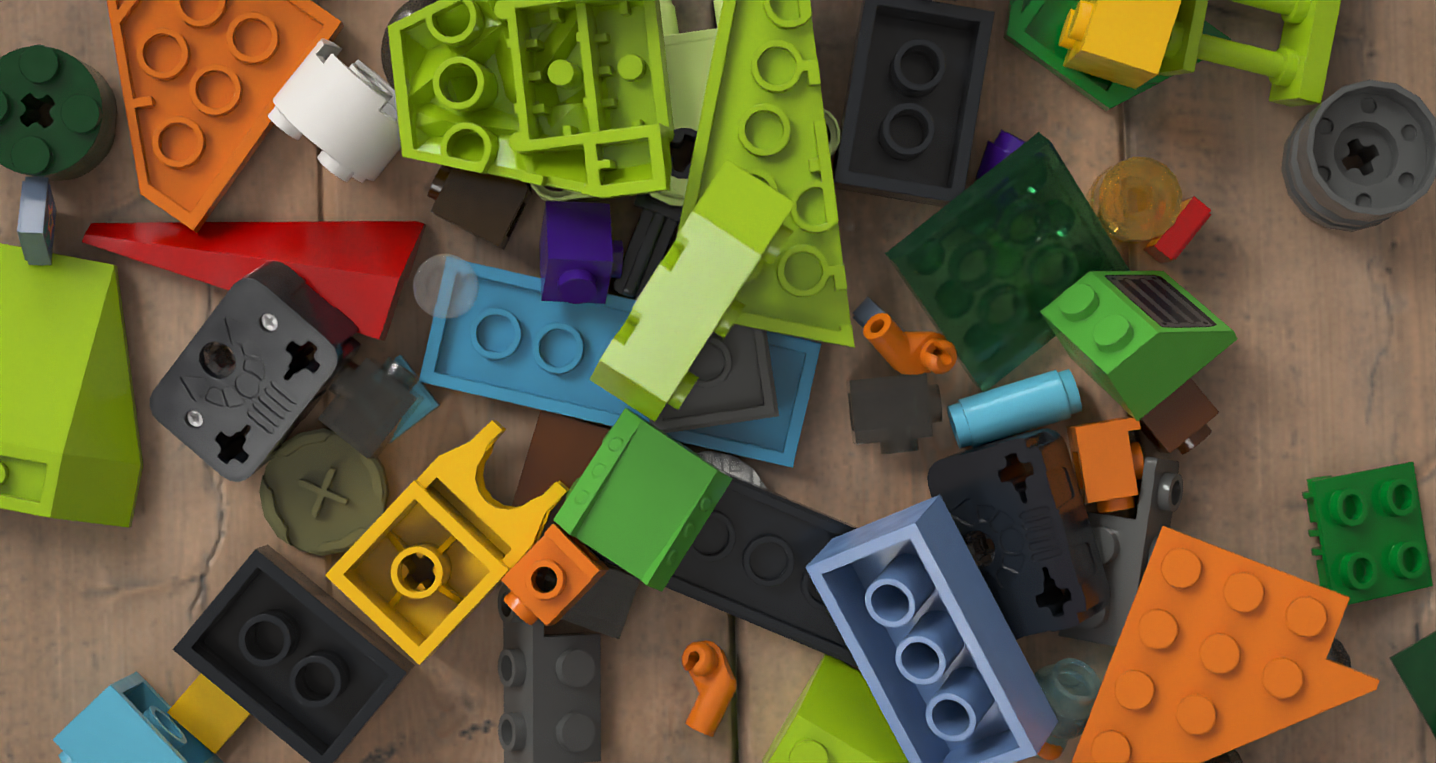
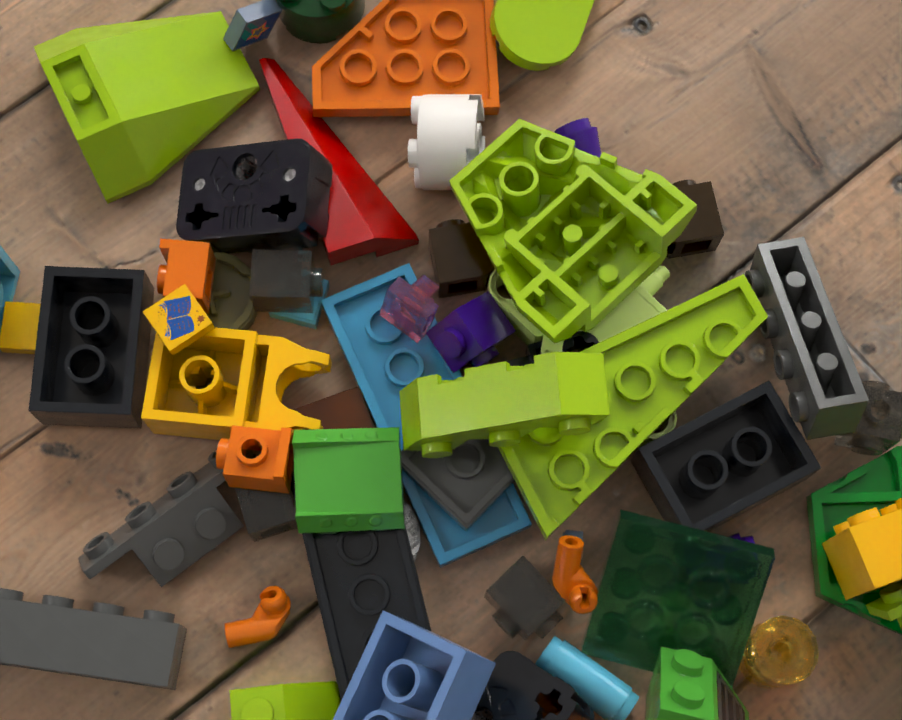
camera: 50 degrees right, 15 degrees down
(291, 507) = (187, 264): none -> orange brick
(342, 553) = (178, 319): none -> yellow tile
(446, 286) = (386, 267): clear tile -> none
(504, 297) = (411, 306): none -> clear pink tile
(1177, 237) = (782, 698): red tile -> none

